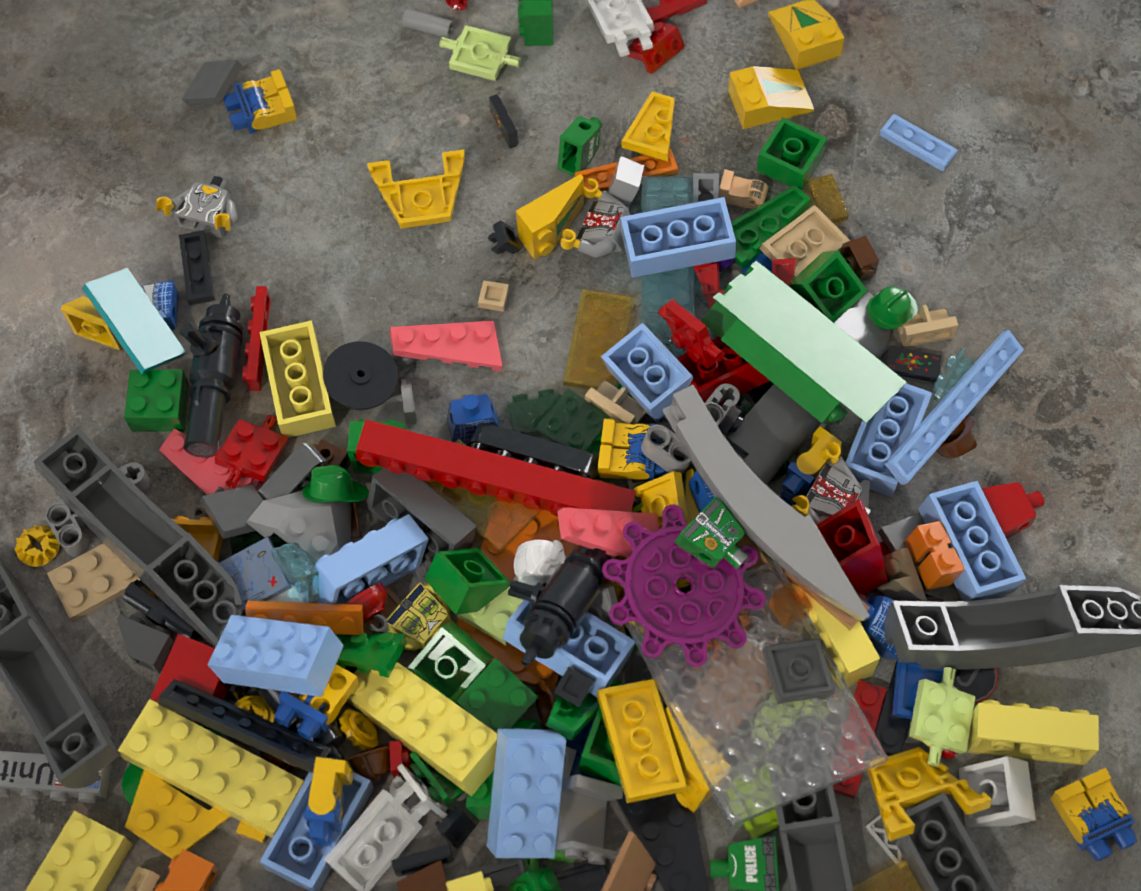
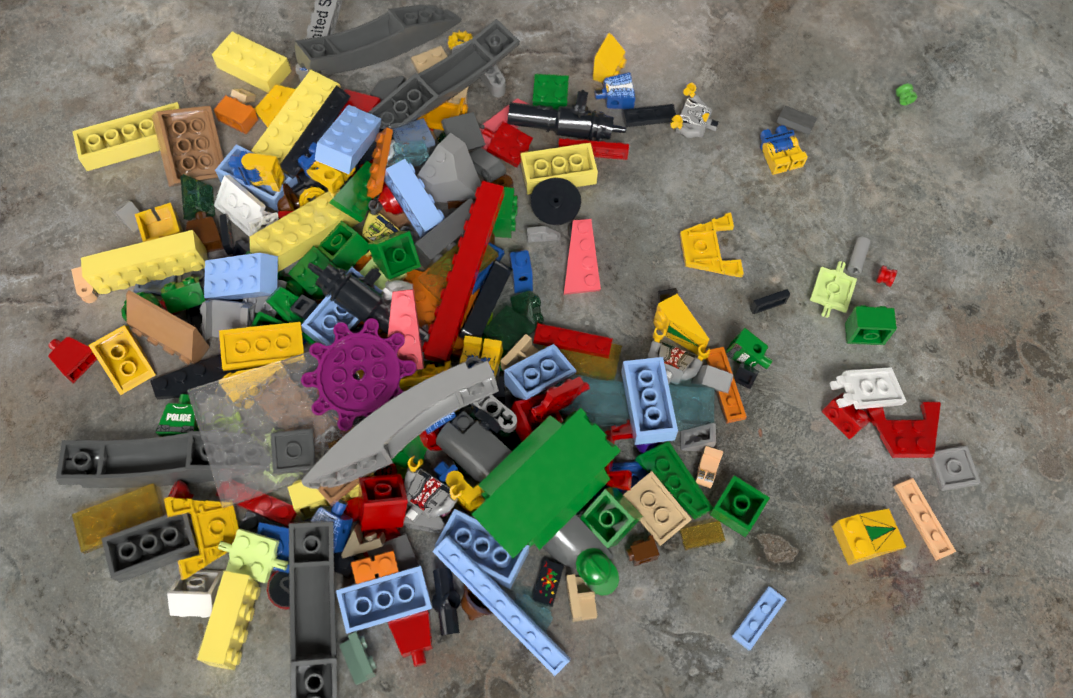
camera: 90 degrees right, 0 degrees up
(134, 320) = (601, 71): tile -> none
(333, 484) = (470, 180): green piece -> none
(493, 296) = (620, 289): tan plate -> none
(581, 345) = (573, 340): none -> red plate
(611, 148) = (746, 375): none -> black tile
(652, 127) = (765, 404): yellow wing -> none
(713, 536) = (382, 388): torso -> none
(767, 95) = (801, 498): yellow slope -> none
(865, 847) = (180, 491): none -> red brick
(958, 472) = (446, 601): none -> black piece
(1048, 569) = (357, 659): none -> sand green bracket
(1095, 814) = (166, 662): hips -> none

